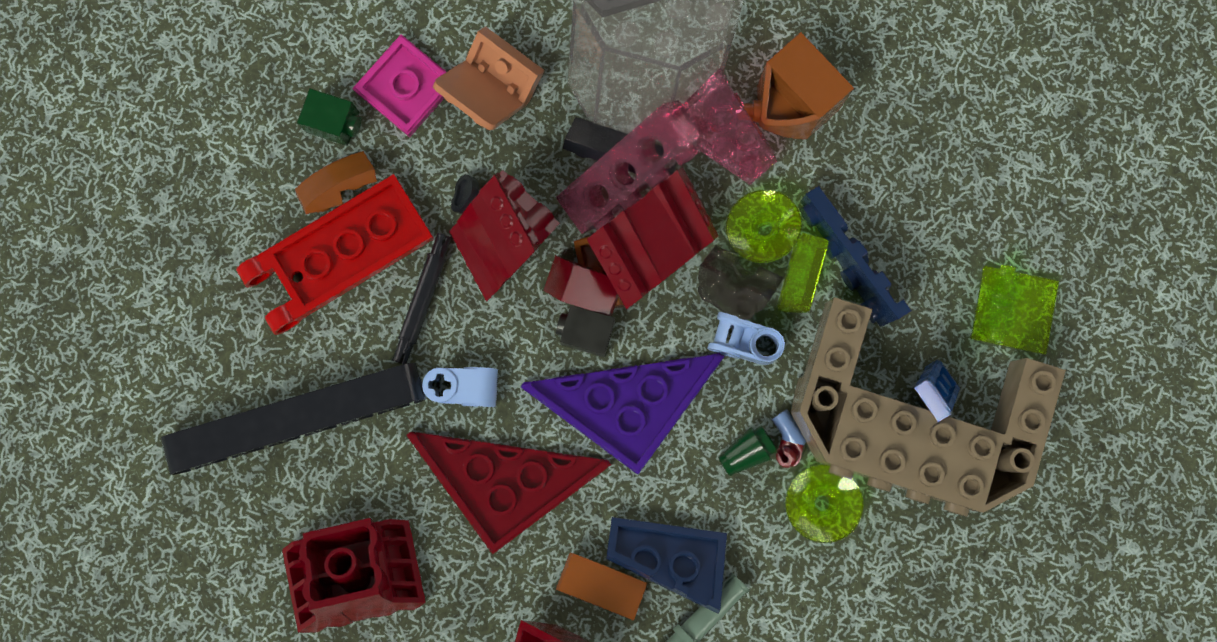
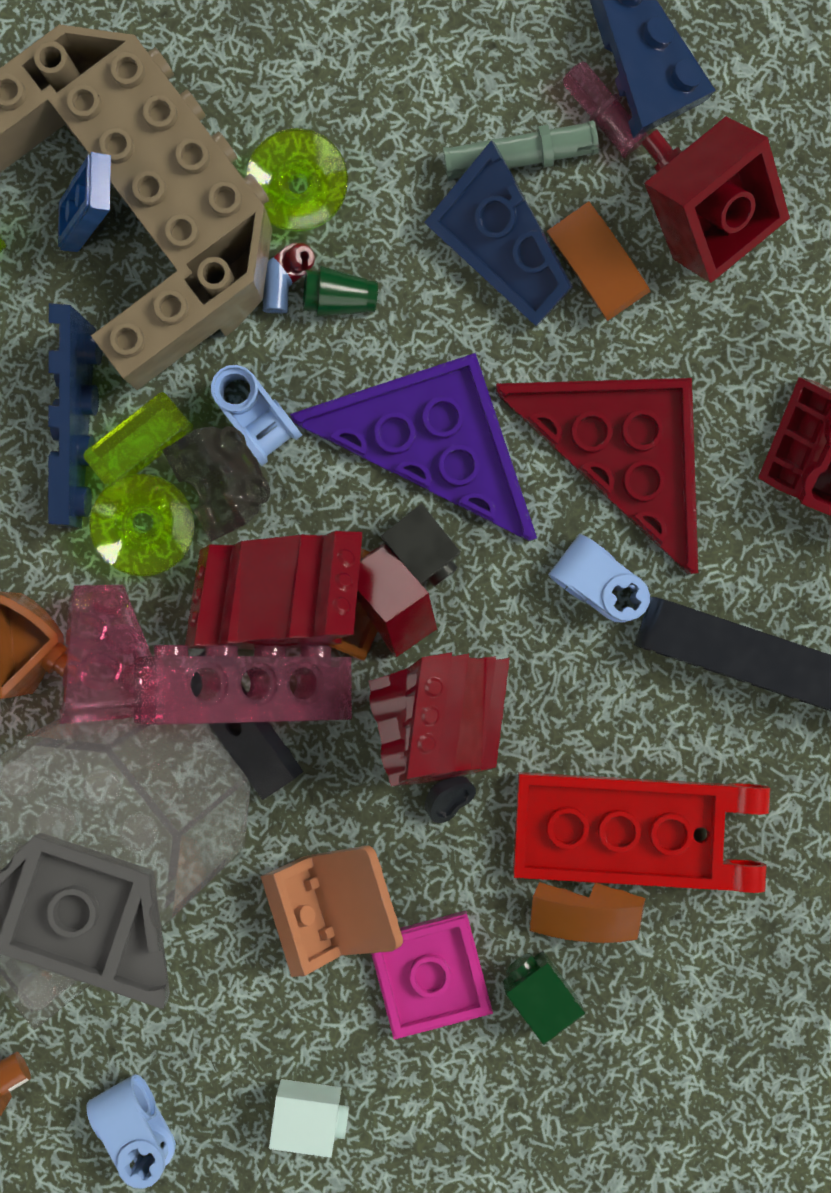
camera: 145 degrees left, 5 degrees up
(421, 298) = (578, 713): black piece -> none

